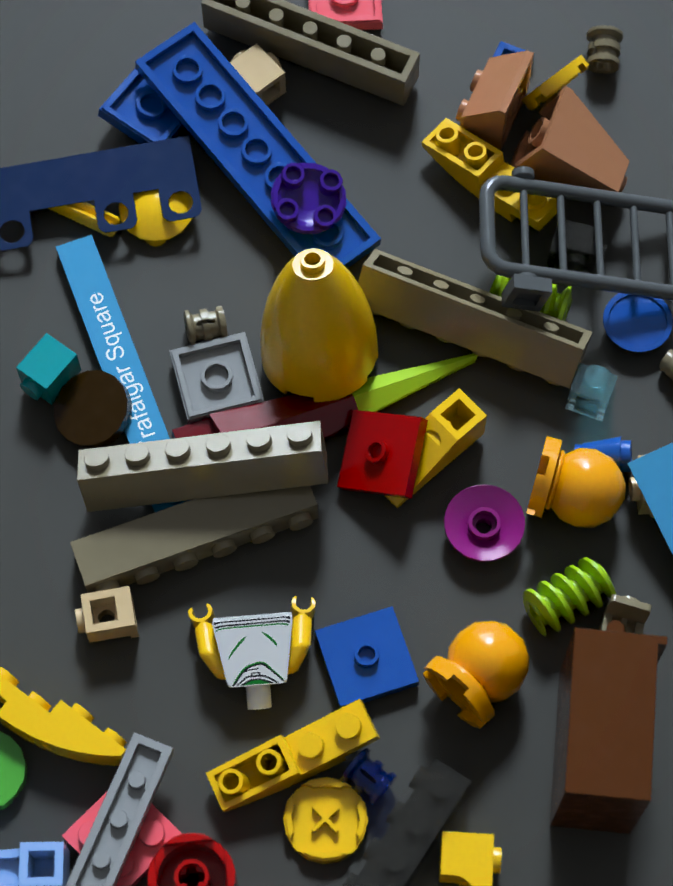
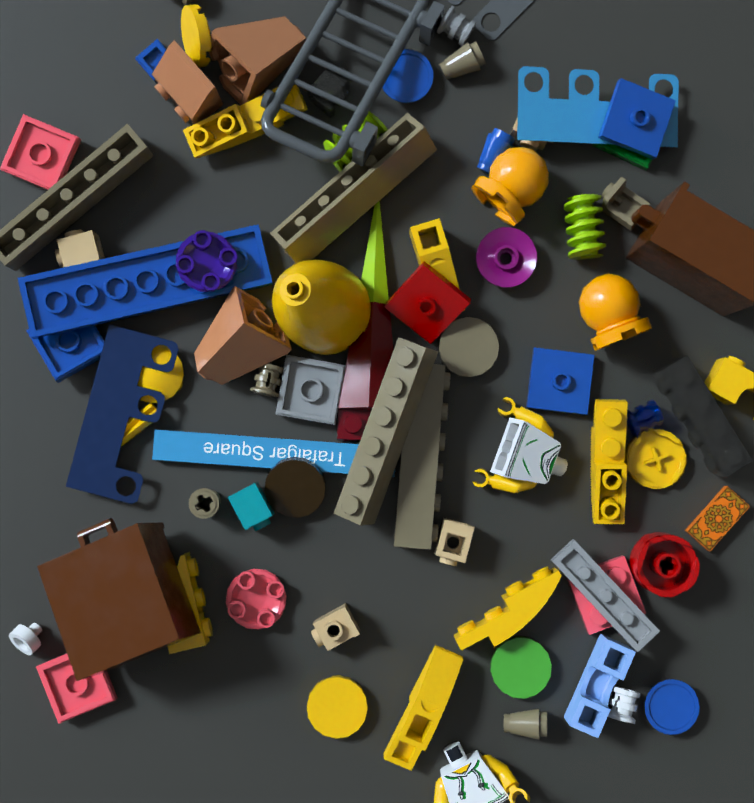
camera: 65 degrees left, 20 degrees up
(32, 323) = (196, 499): none -> dark tan bush
(233, 272) = (239, 340): none -> nougat slope
(354, 532) = (468, 347): none -> dark tan tile
(593, 384) = (447, 134): clear light blue brick -> none

